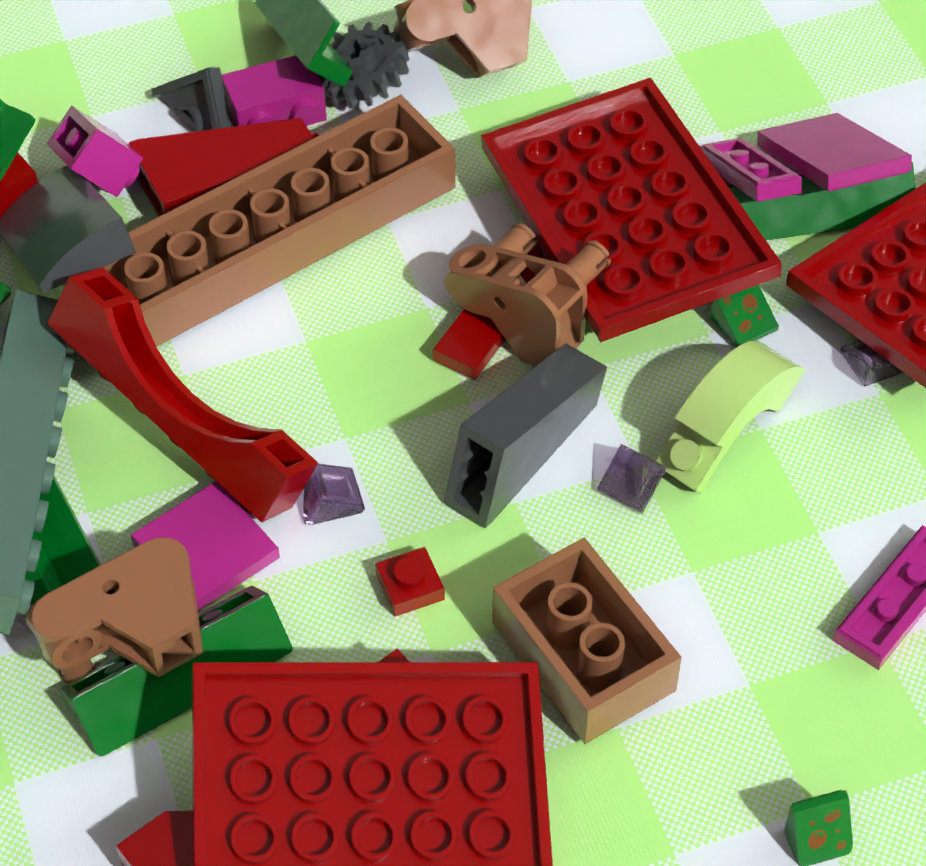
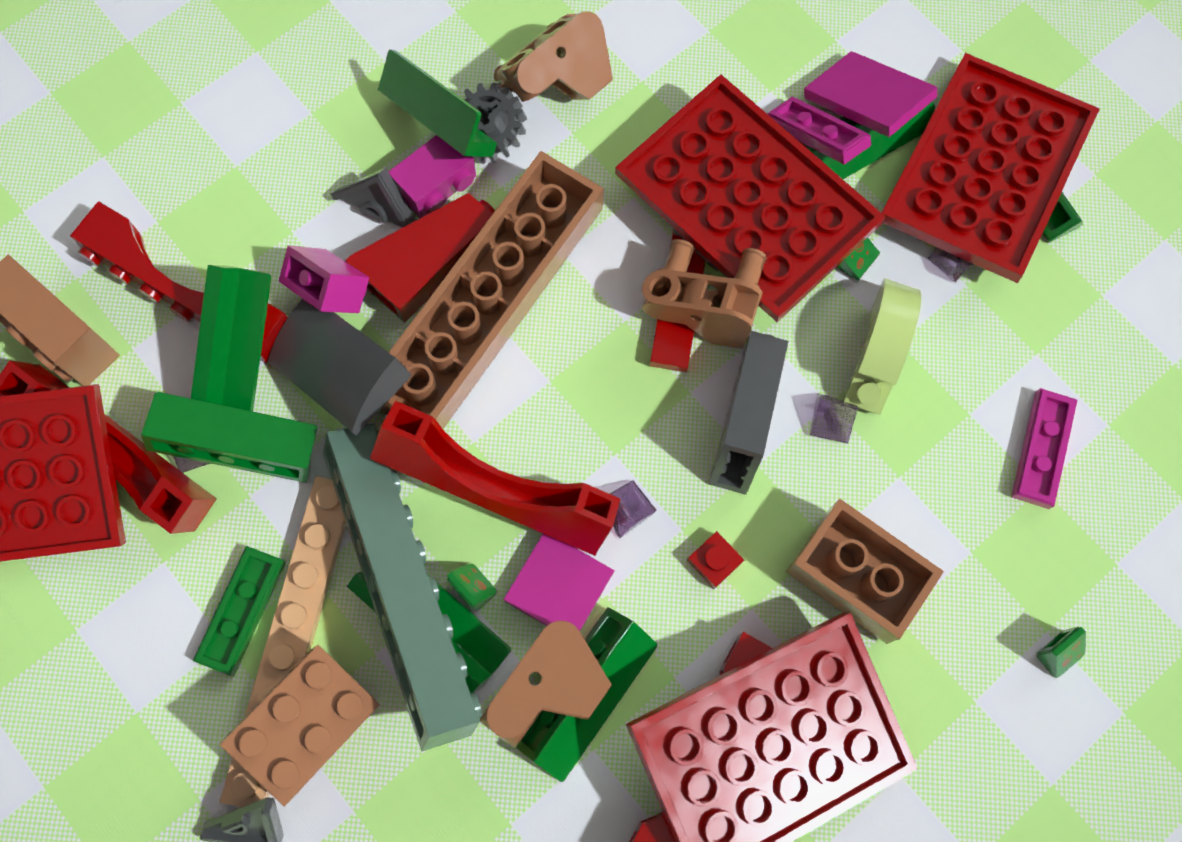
camera: 25 degrees left, 20 degrees up
(100, 510) = (471, 586): none -> green slope

